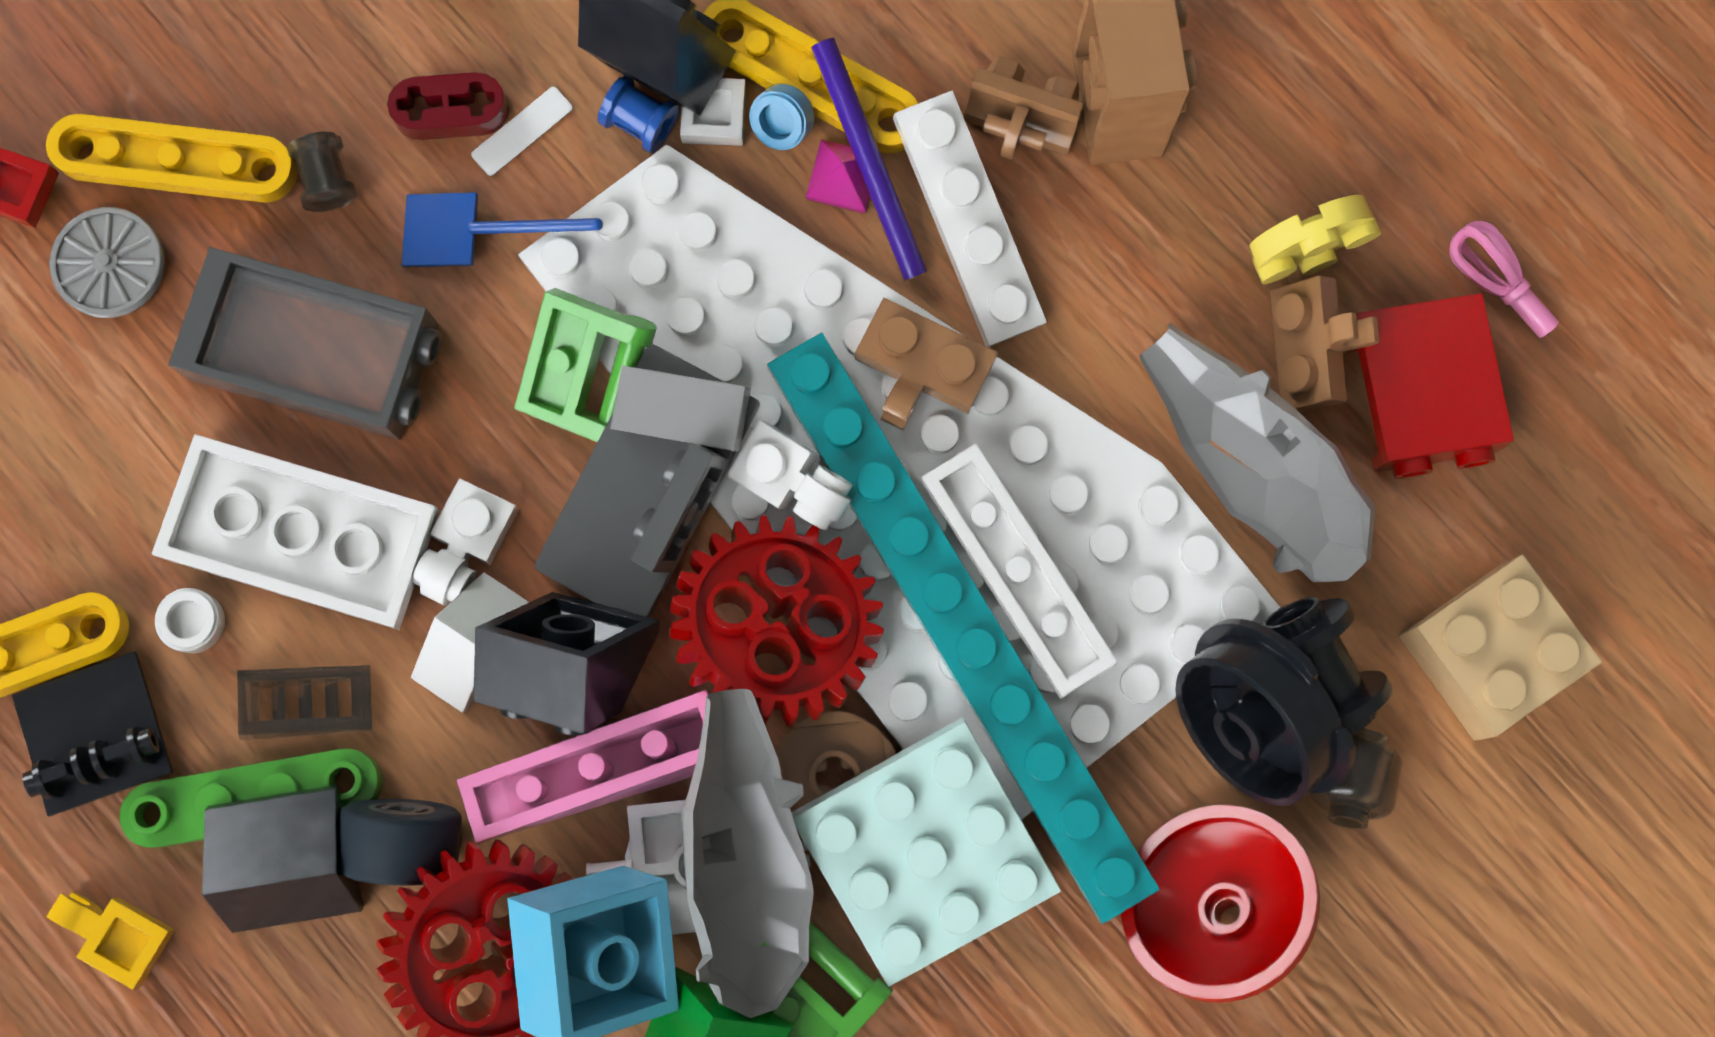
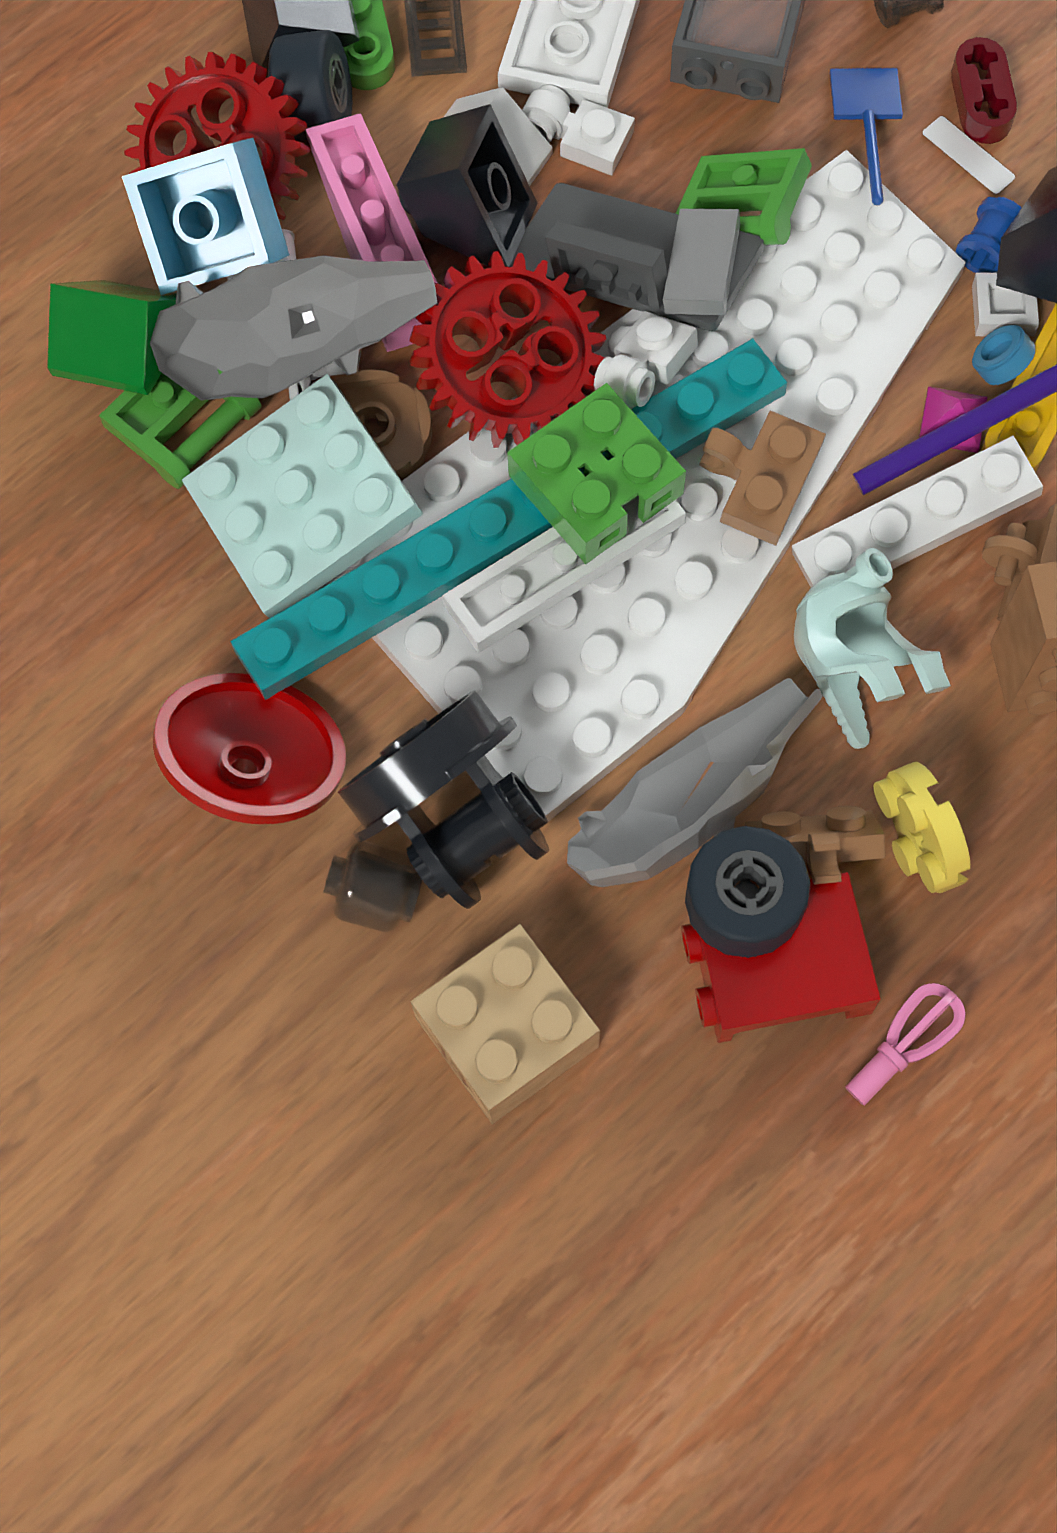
camera: 90 degrees right, 10 degrees down
(918, 549) = (590, 506): none -> bright green piece
(1086, 287) = (847, 635): none -> light aqua piece
(1378, 422) = (746, 918): none -> black wheel

